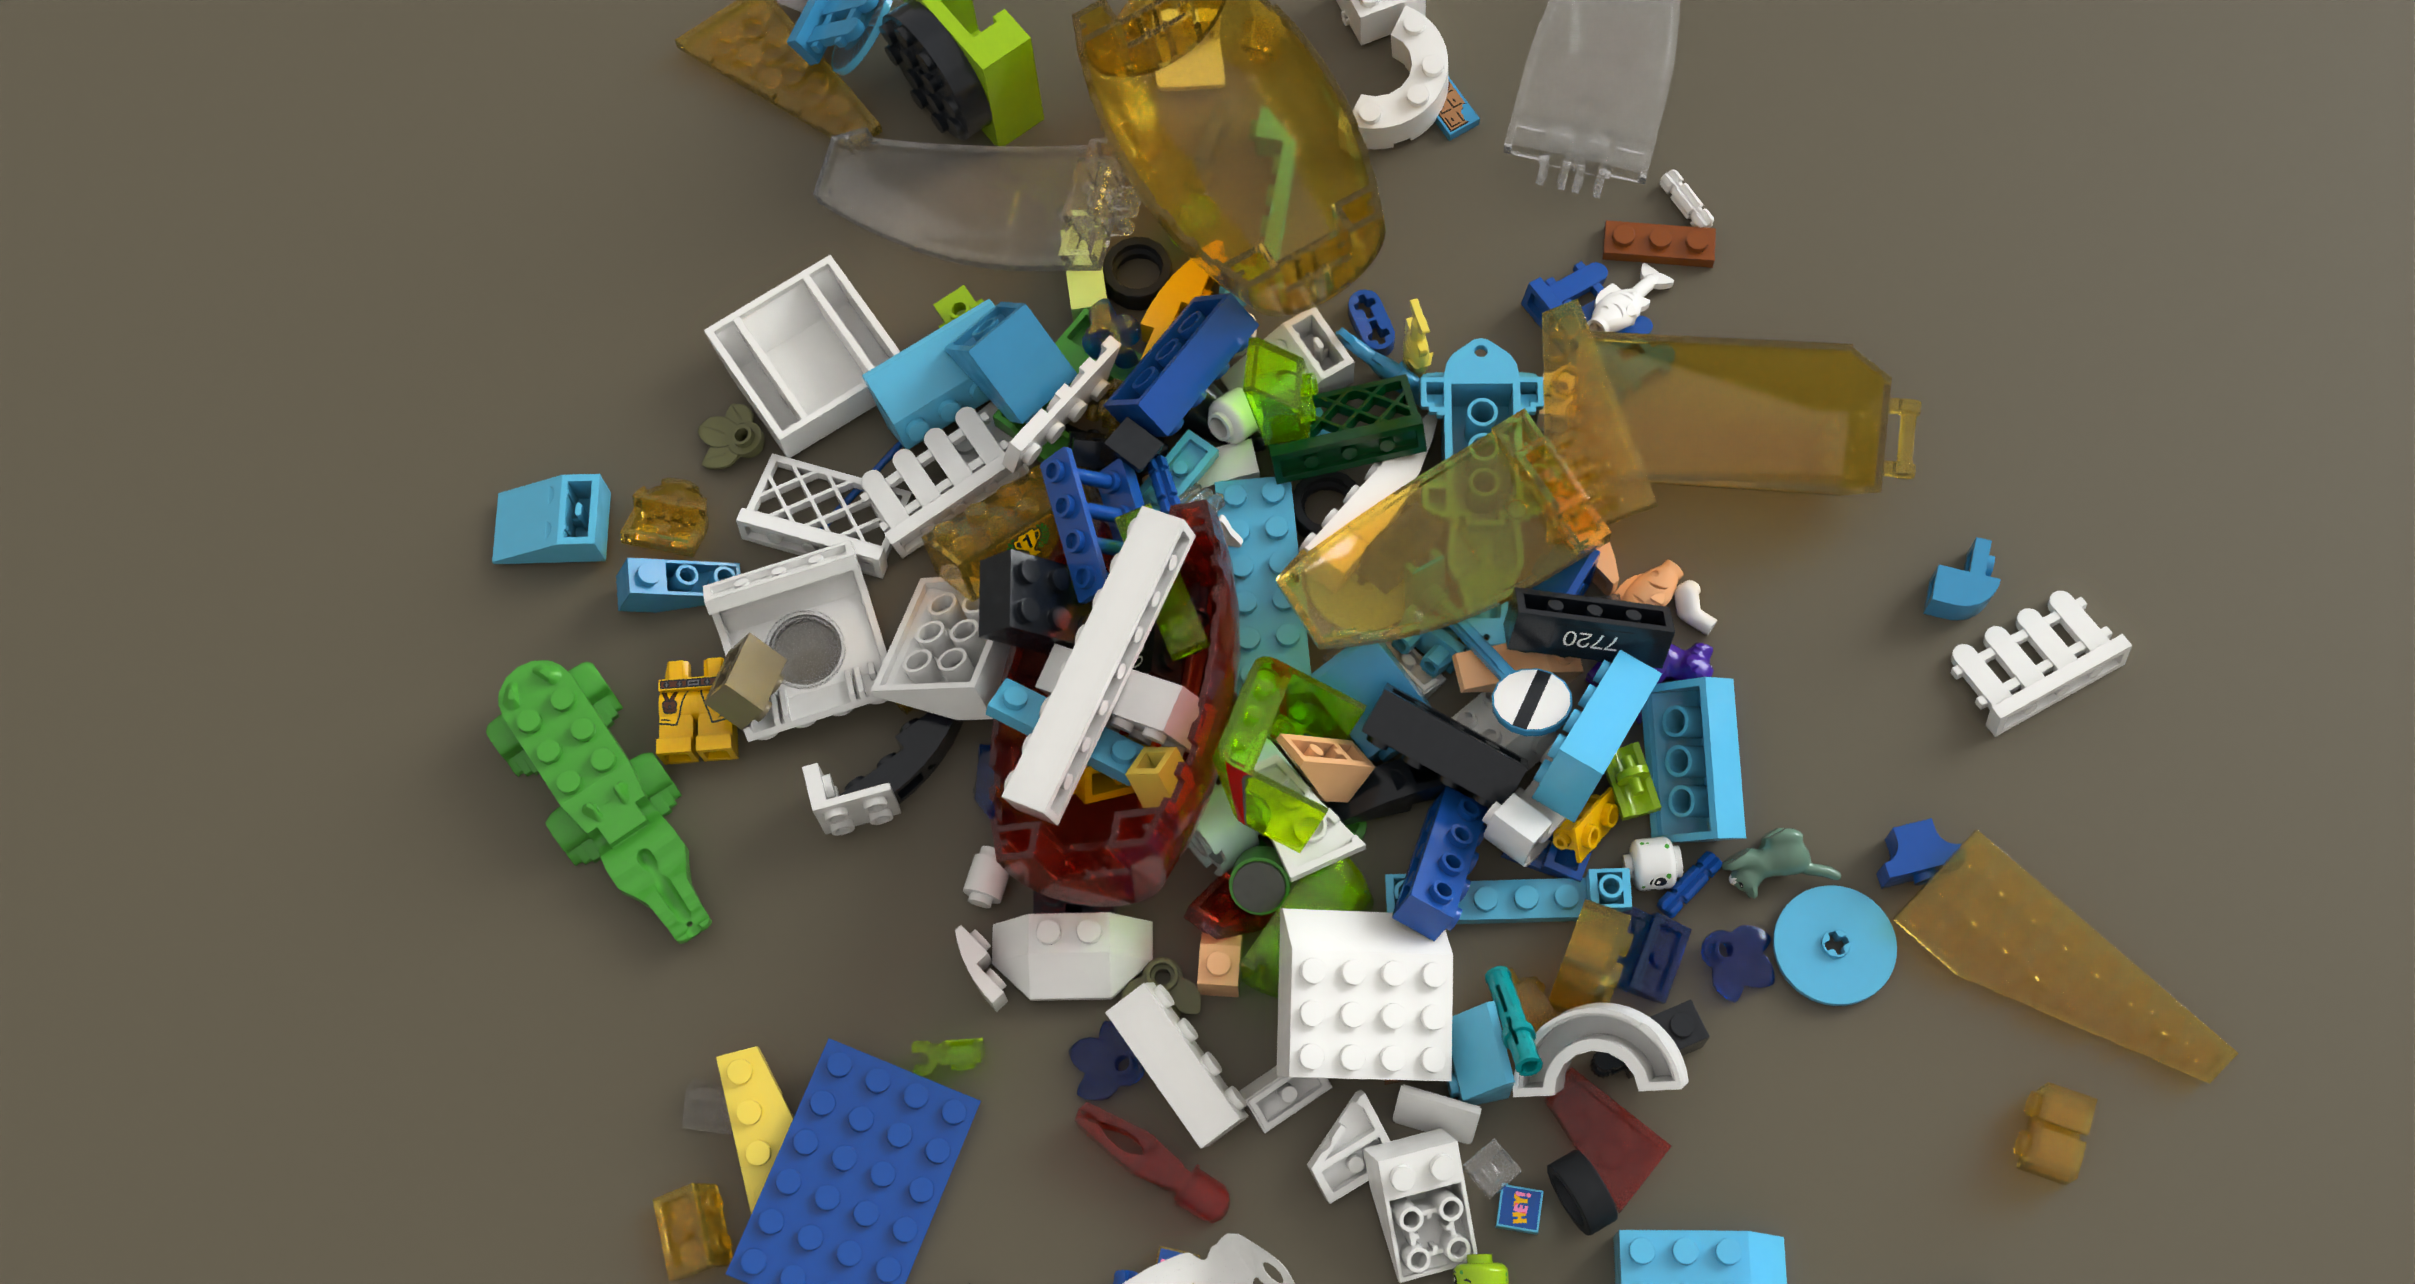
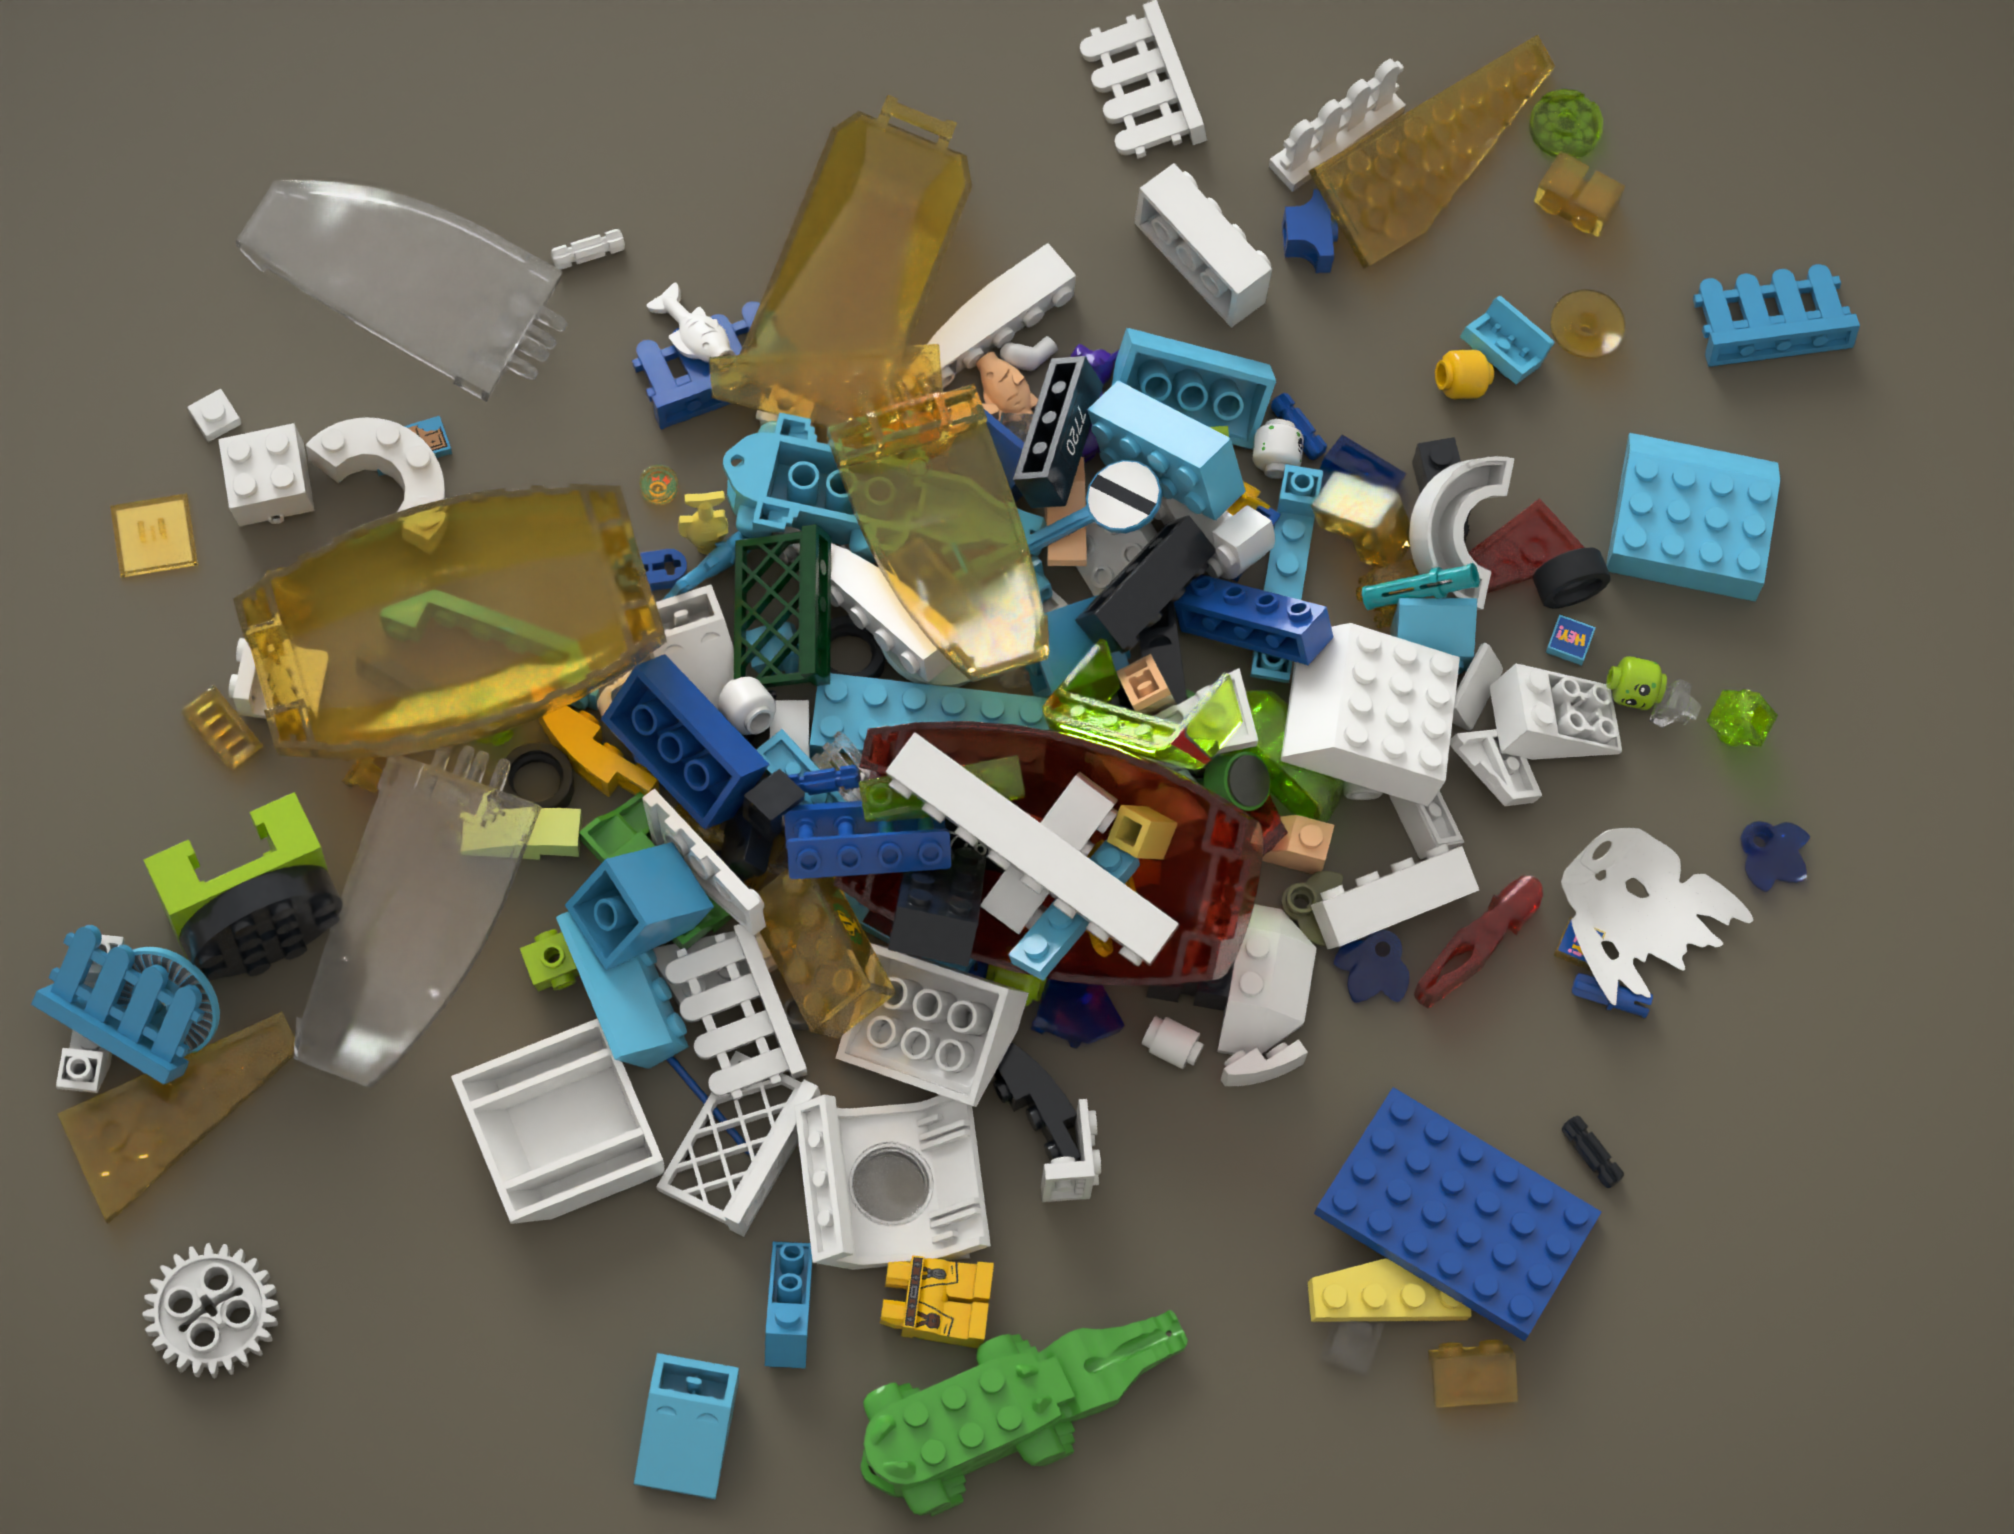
camera: 90 degrees left, 0 degrees up
(630, 116) = (191, 1281): none -> white gear
(668, 518) = (709, 1302): clear yellow slope -> none
(731, 437) = (622, 1234): olive plate -> none
(746, 682) = (931, 1230): dark tan brick -> none
(960, 1054) = (1343, 1100): clear neon green plate -> none
(1121, 327) = (616, 809): plate -> none
(1279, 392) = (744, 651): clear neon green slope -> none
(1462, 312) = (658, 484): none -> clear yellow tile
(1492, 1168) = (1536, 648): clear tile -> none
(1659, 244) = (628, 287): dark orange plate -> none
(1725, 566) = (1002, 309): none -> white slope
(1744, 963) = (1377, 404): clear blue plate -> none
(1778, 855) = (1290, 344): sand green animal -> none
(1796, 1042) = (1464, 374): none -> yellow head
(1820, 973) = (1397, 303): medium azure piece -> none
(1849, 1082) = (1508, 340): none -> medium azure bracket
(1861, 744) = (1203, 244): none -> white brick
(1912, 1153) = (1591, 310): none -> clear yellow dish
(1966, 592) = (1064, 119): dark azure brick -> none
(2058, 866) = (1340, 125): none -> white fence
(2143, 1109) = (1566, 123): none -> clear neon green tile

